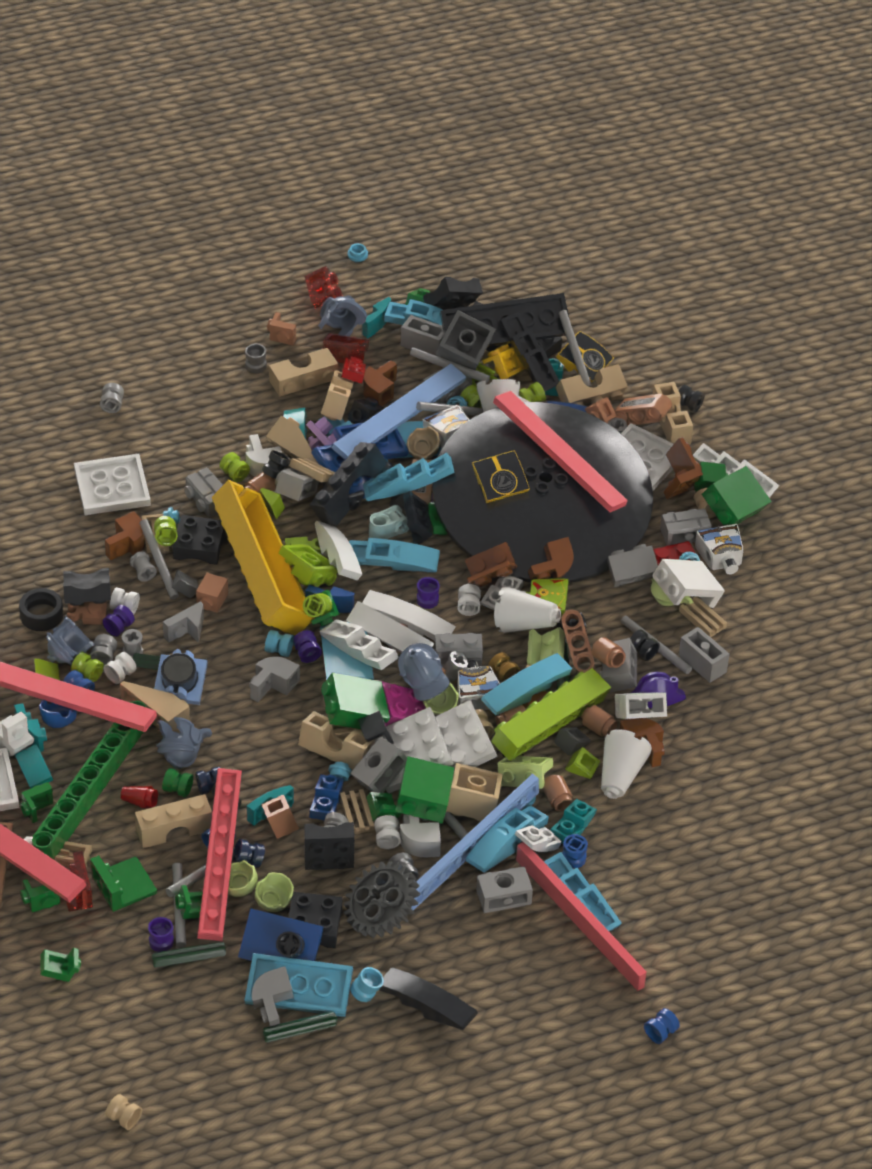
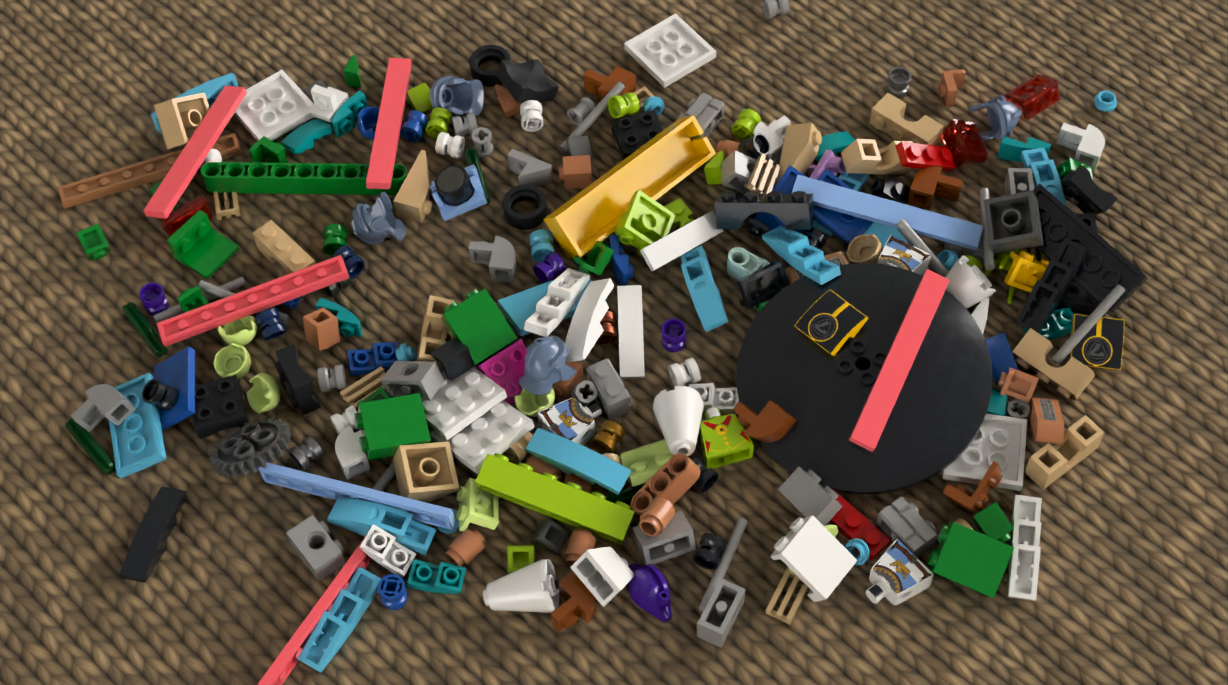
camera: 70 degrees right, 10 degrees up
(116, 622) = (506, 121): dark purple wheel -> none
(141, 796) = (308, 222): red cone -> none
(231, 653) = (520, 193): none -> black tyre
(322, 604) = (585, 248): lime wheel -> none
(323, 878) = (264, 394): none -> yellowish green hair
(367, 984) = (146, 474): medium azure wheel -> none
(397, 280) = (1087, 143): none -> white brick
(489, 564) = (731, 369): dark orange bracket -> none
(534, 393) = (1004, 316): lime wheel -> none
(691, 398) = (1107, 461): black wheel -> none

